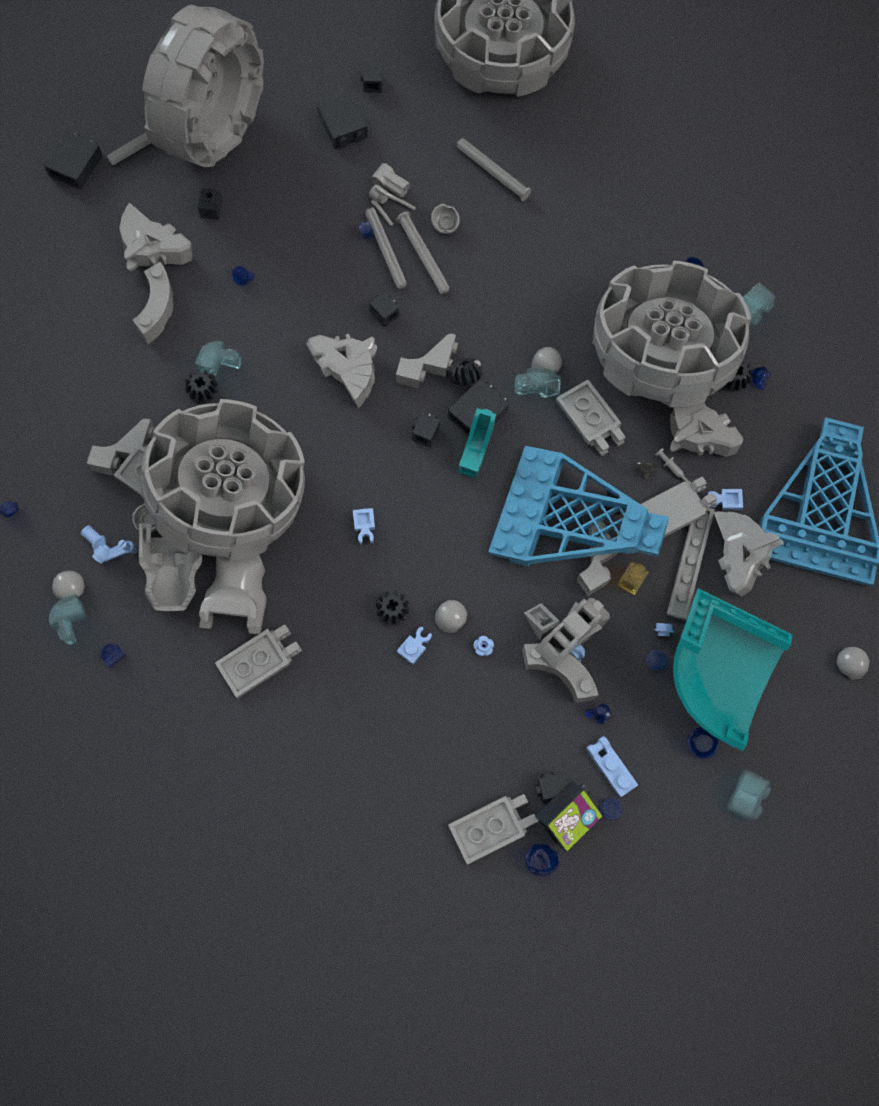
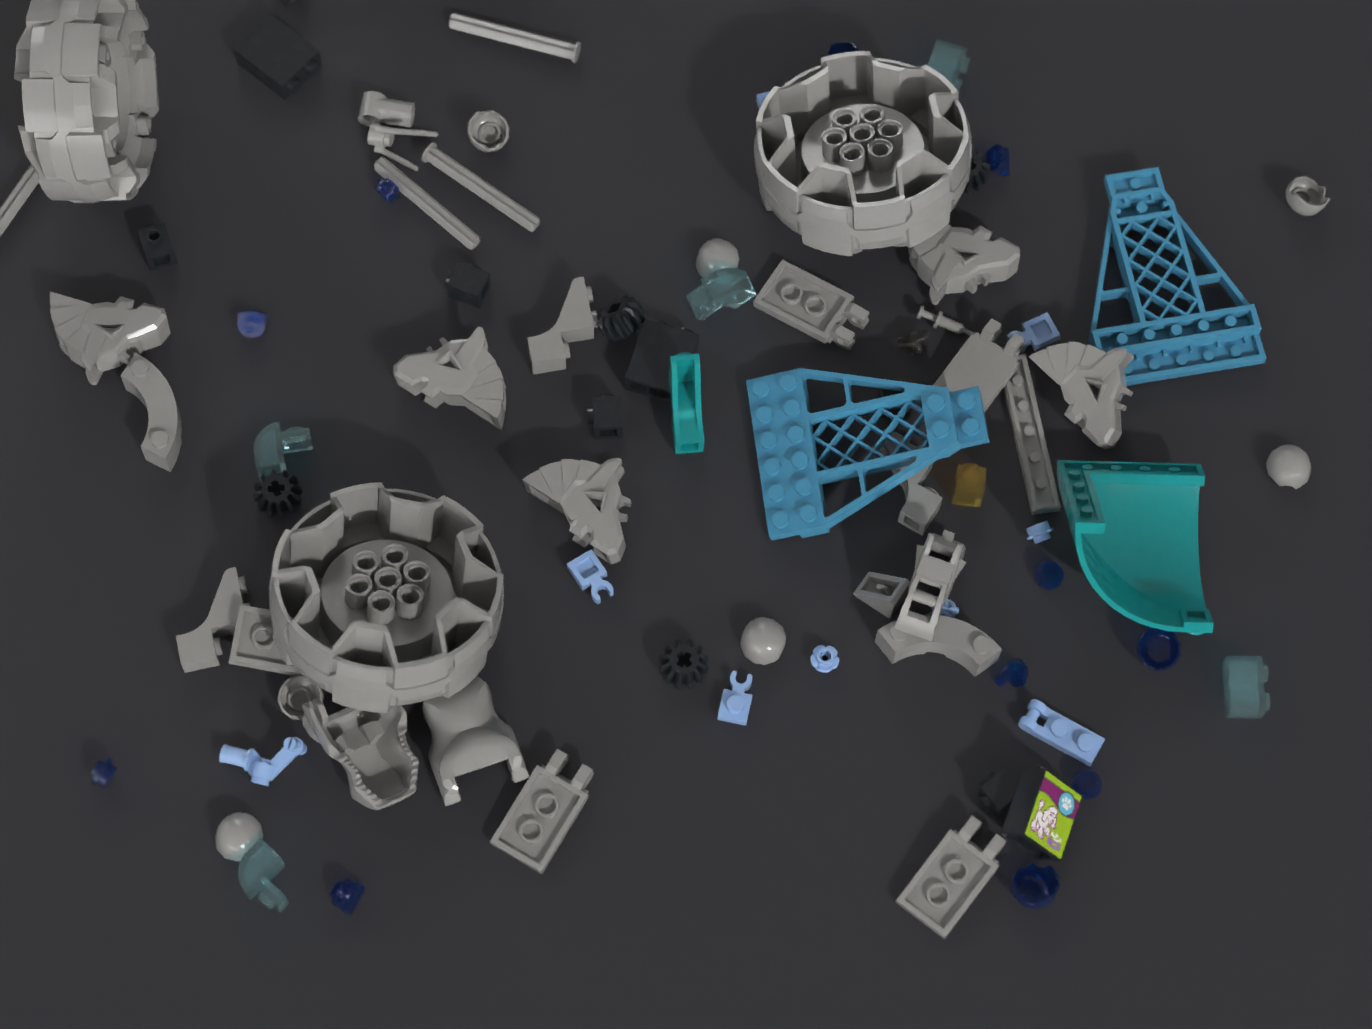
camera: 25 degrees left, 5 degrees down
(382, 465) = (577, 491): none -> light grey animal

